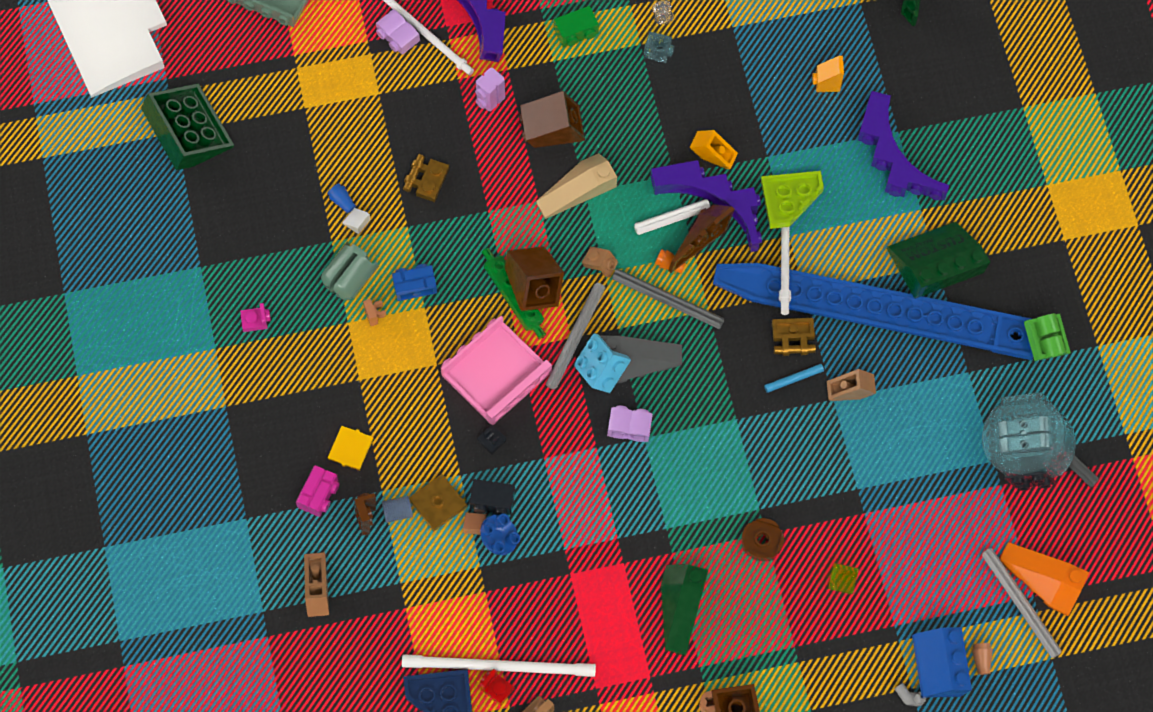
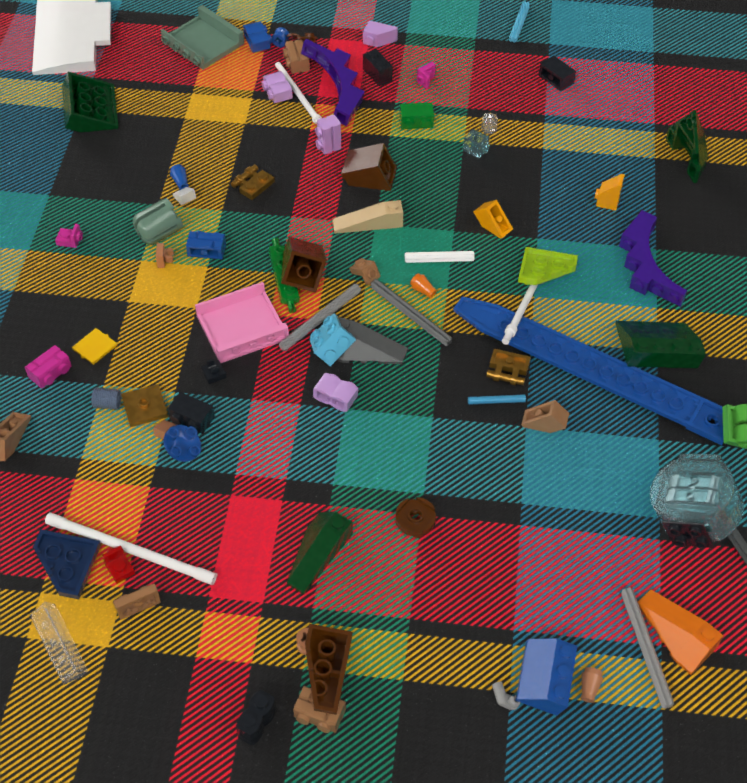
camera: 20 degrees right, 15 degrees down
(364, 506) = (76, 388): reddish brown bracket -> none
(691, 180) = (465, 235): dark purple arch -> none
(708, 227) = (456, 271): reddish brown wedge -> none
(843, 578) = (478, 571): clear neon green panel -> none

